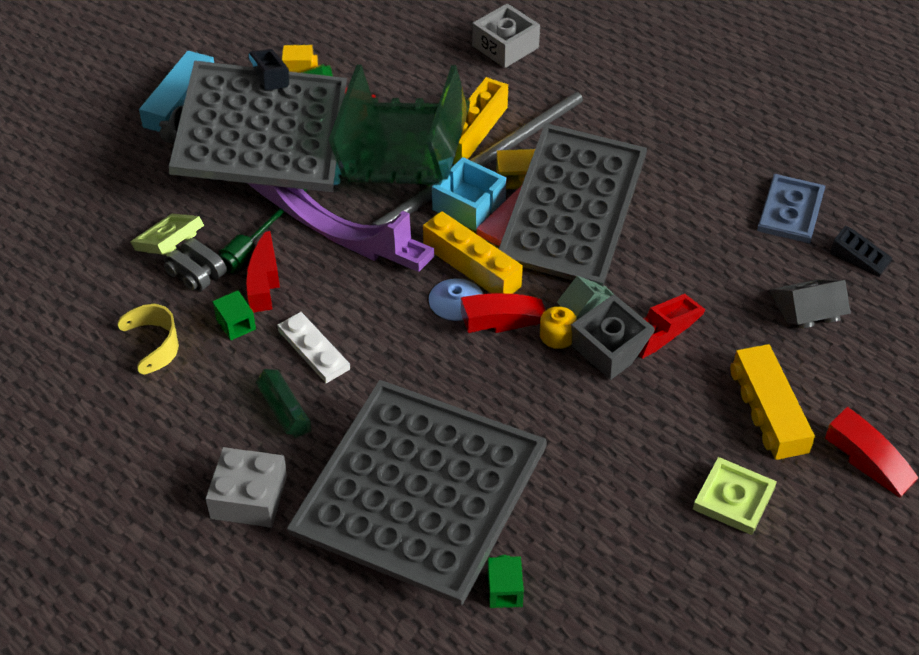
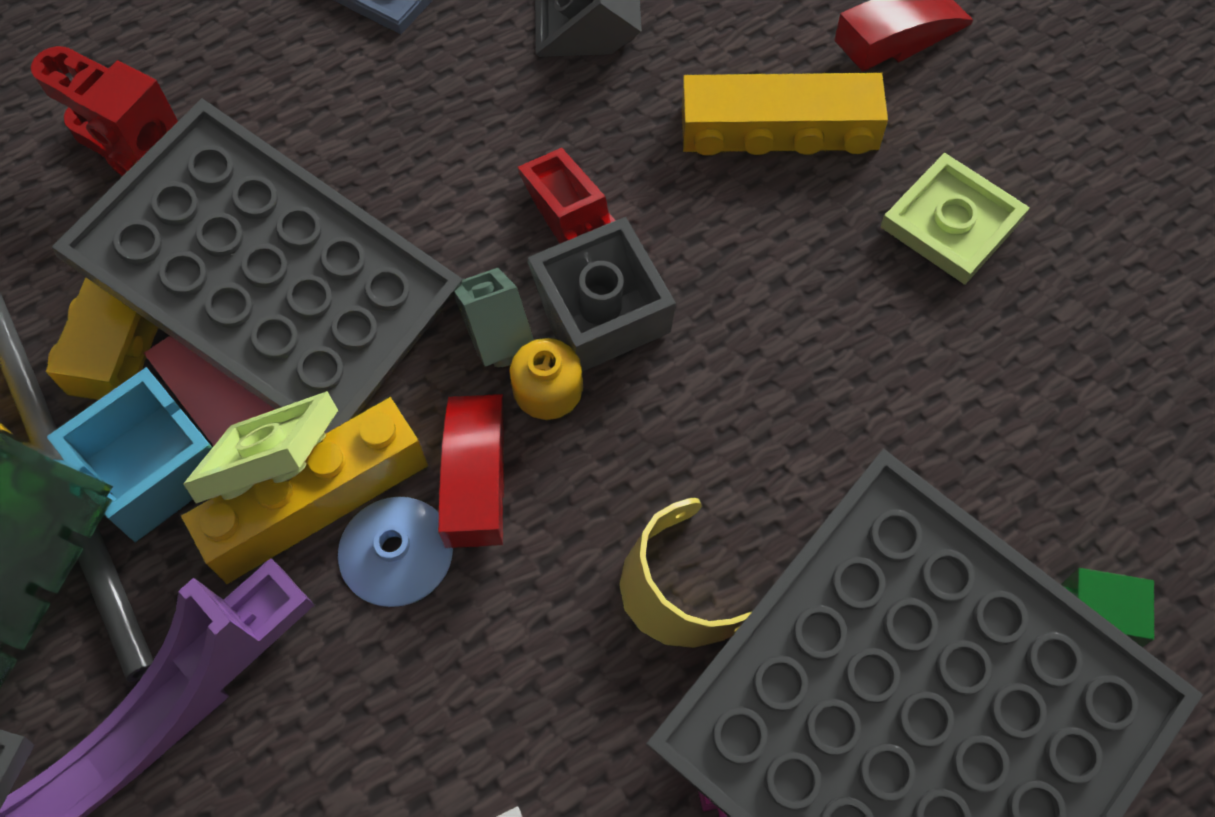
camera: 75 degrees left, 15 degrees up
(477, 223) = (262, 449): none -> yellowish green plate
(482, 381) = (648, 605): none -> light yellow piece
(642, 123) = (121, 105): none -> red brick

